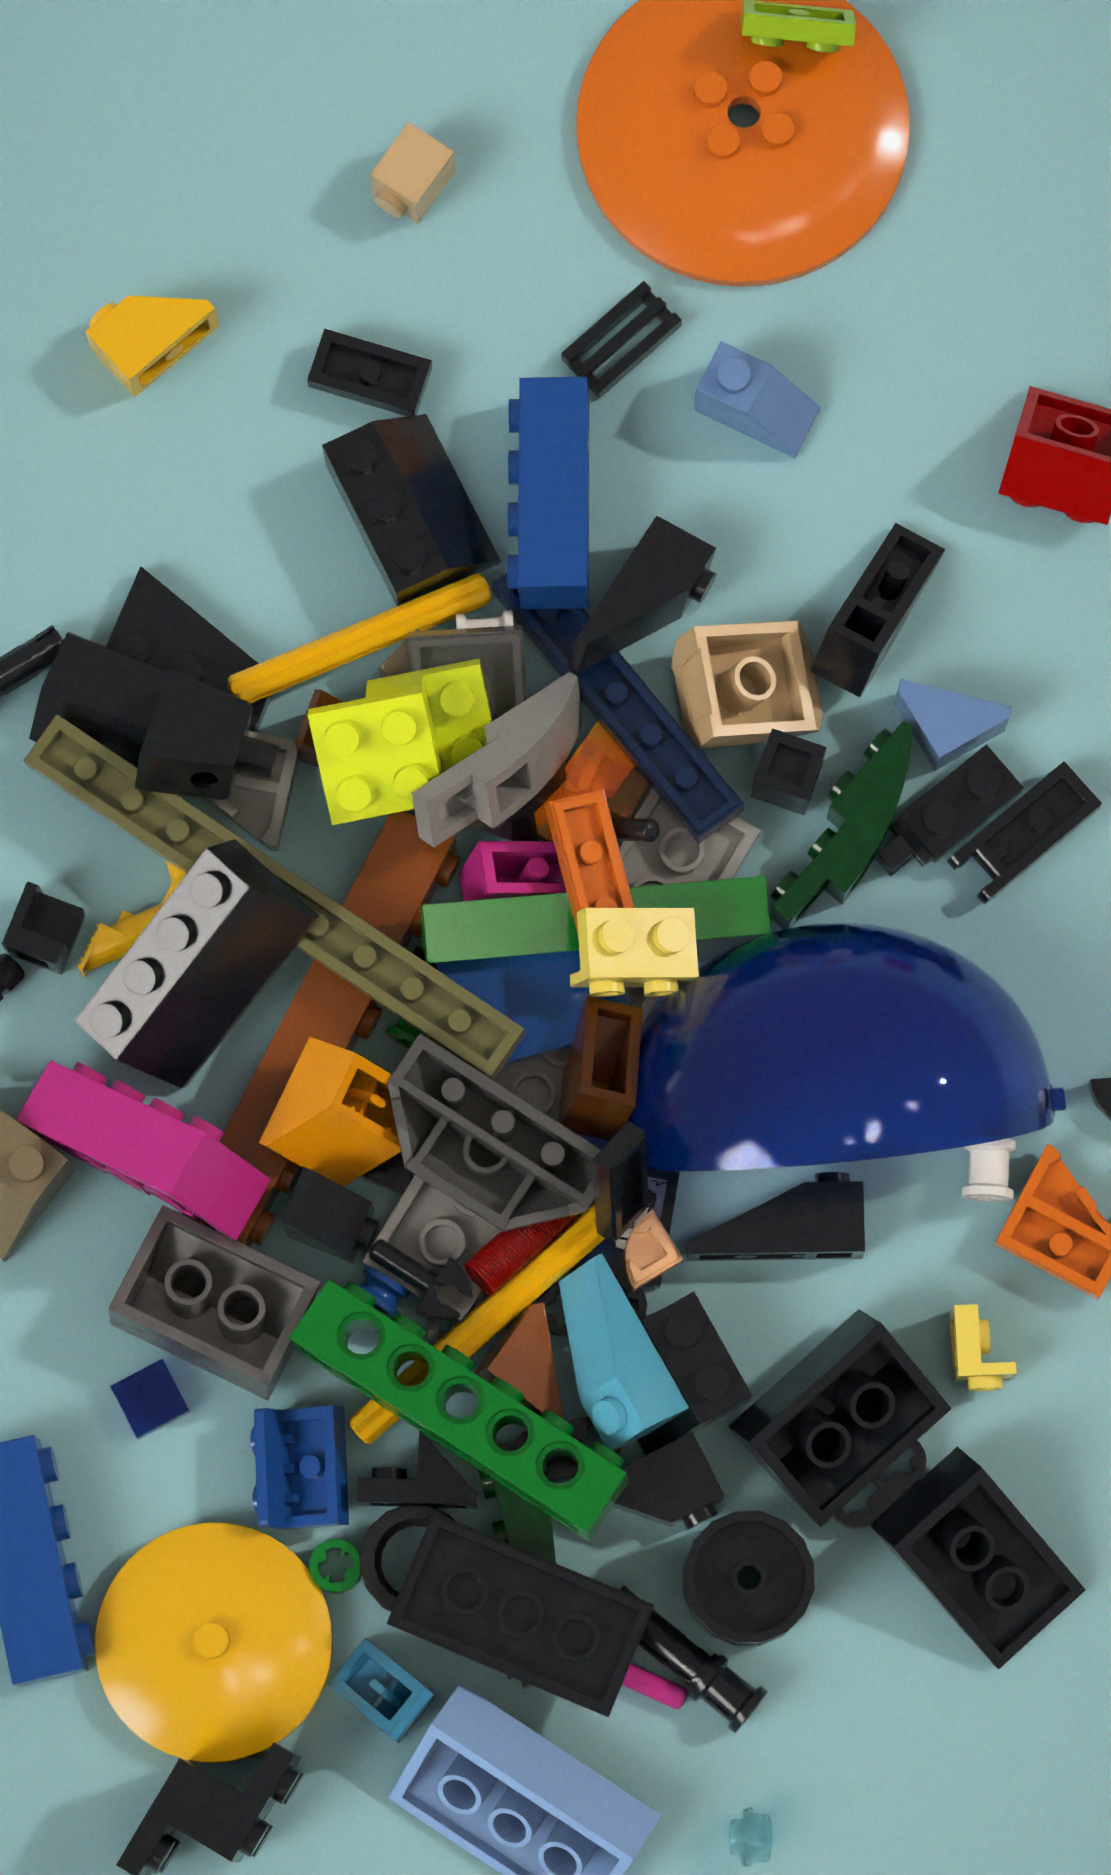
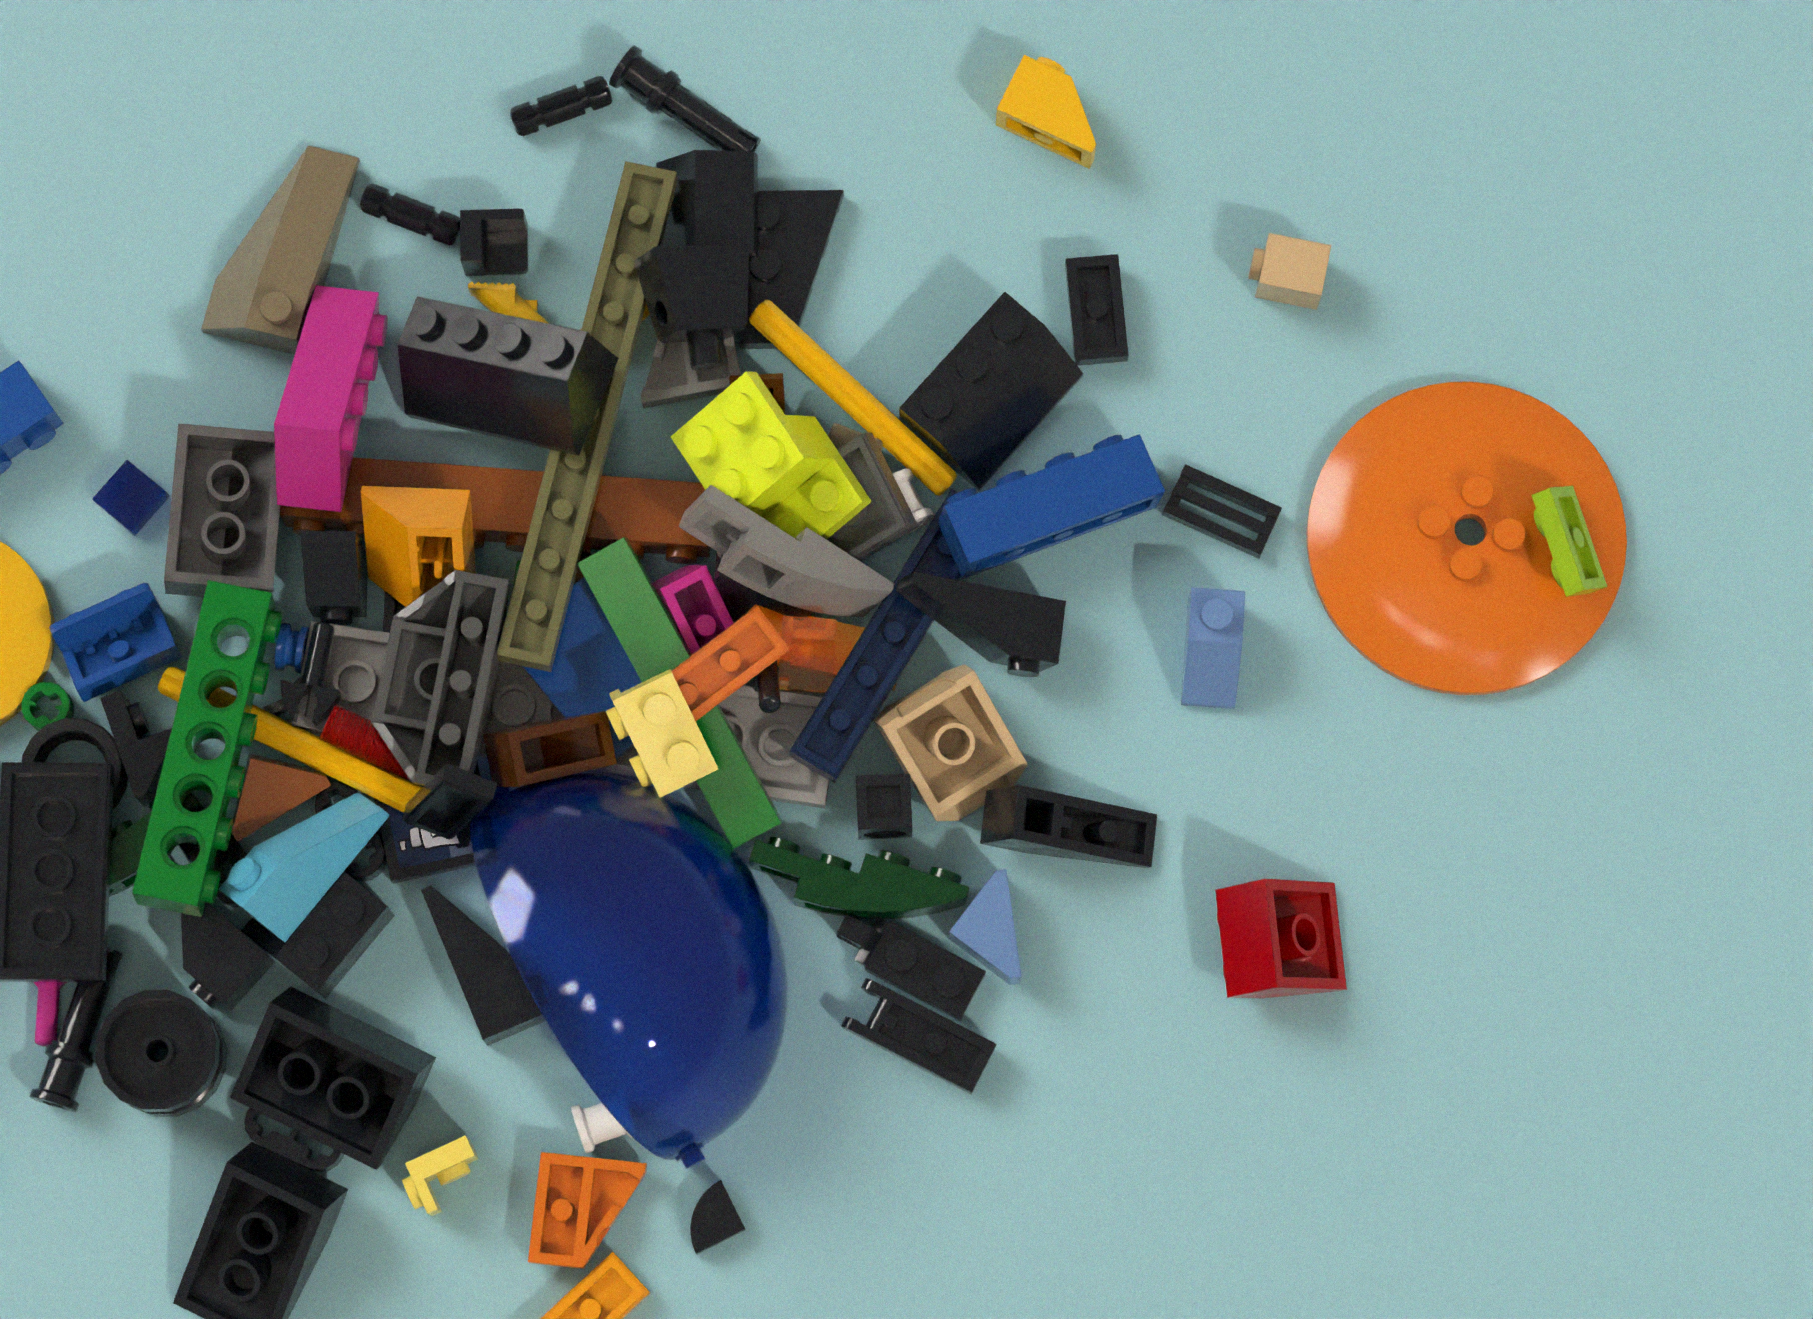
camera: 65 degrees right, 0 degrees up
(648, 1252) = (413, 857): light nougat tile -> none

